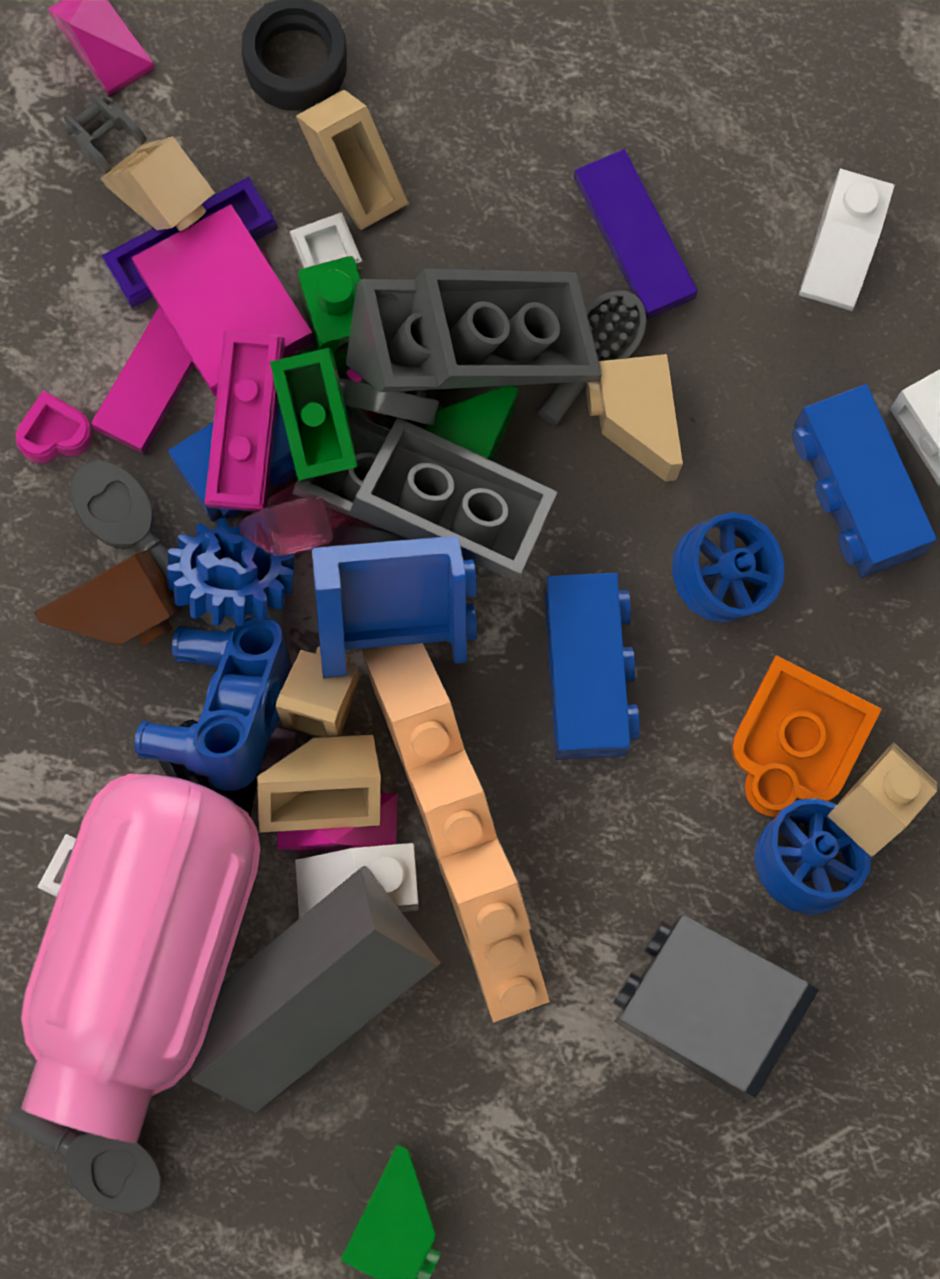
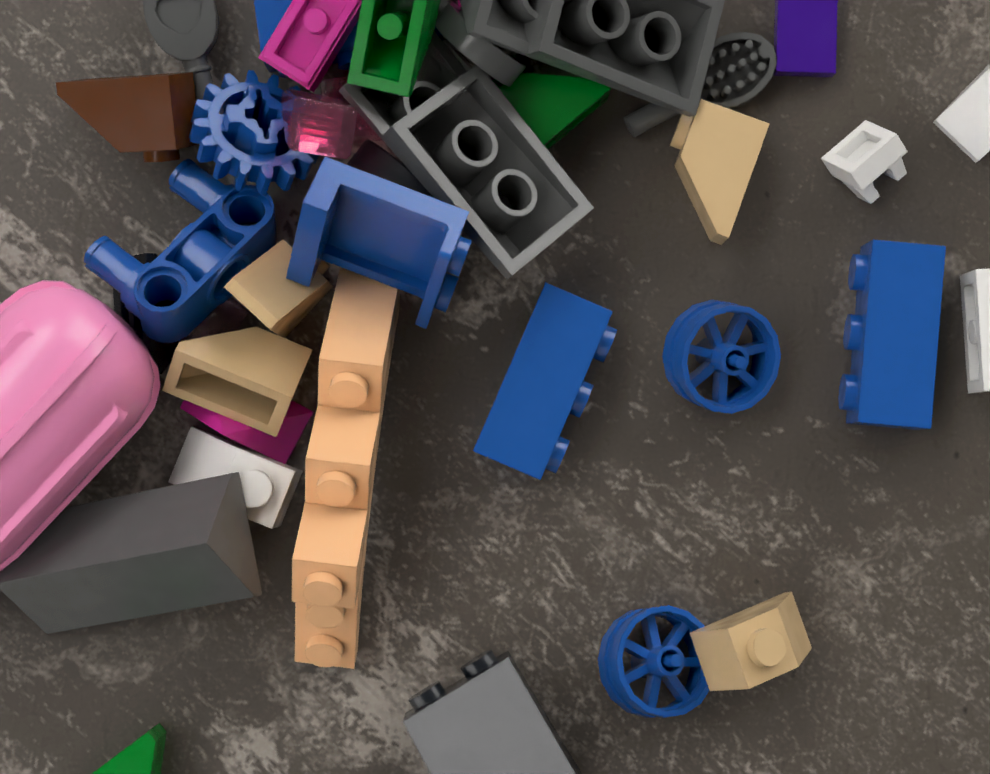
camera: 30 degrees right, 10 degrees up
(759, 346) = (864, 157): none -> white tile
(799, 738) = (704, 546): orange plate -> none

